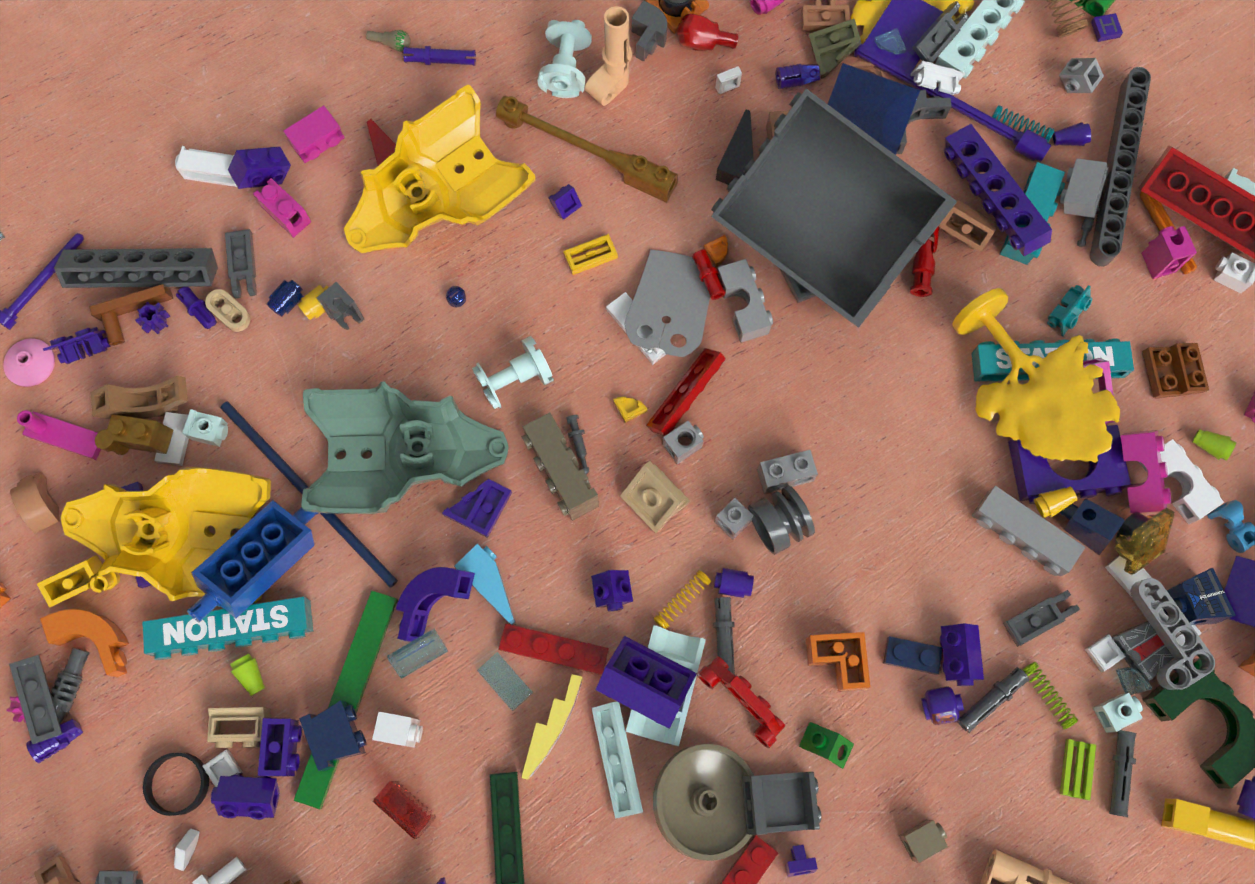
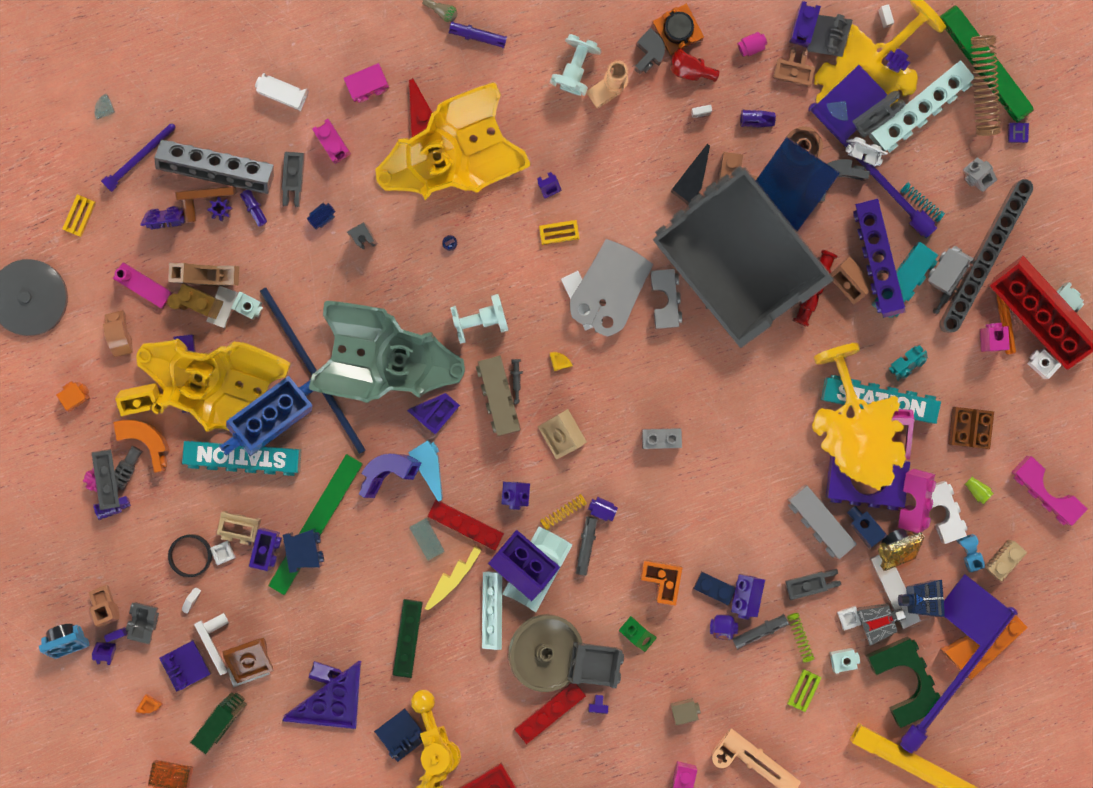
camera: 15 degrees right, 15 degrees up
(35, 369) = (131, 223): bright pink dish -> none
(229, 311) = (277, 215): tan plate -> none
(246, 796) = (236, 576): dark purple brick -> none
(248, 674) = (250, 492): lime cone -> none
(256, 166) = (320, 106): dark purple brick -> none
(310, 305) = (344, 223): yellow brick -> none
(397, 729) = (347, 557): white brick -> none
(404, 809) = (342, 610): clear red brick -> none
(417, 653) = (370, 506): clear light blue tile -> none
(637, 170) = (607, 170): pearl gold bar -> none
(678, 451) = (587, 405): light grey brick -> none
(686, 392) = (604, 360): red plate -> none
(708, 274) = (643, 273): red pin -> none
(717, 250) = (655, 253): orange tile -> none
(734, 518) = (614, 463): light grey brick -> none
(740, 688) = (574, 570): red plate -> none
(786, 517) = (647, 474): dark grey wheel -> none
(834, 45) = (793, 100): olive wing -> none
(1054, 501) = (845, 507): yellow cone -> none
(1073, 135) = (958, 222): dark purple cone -> none
(1122, 773) = (842, 680): dark grey pin -> none
(1132, 680) = (860, 641): clear light blue tile -> none
(1167, 632) = (891, 616): light grey beam -> none

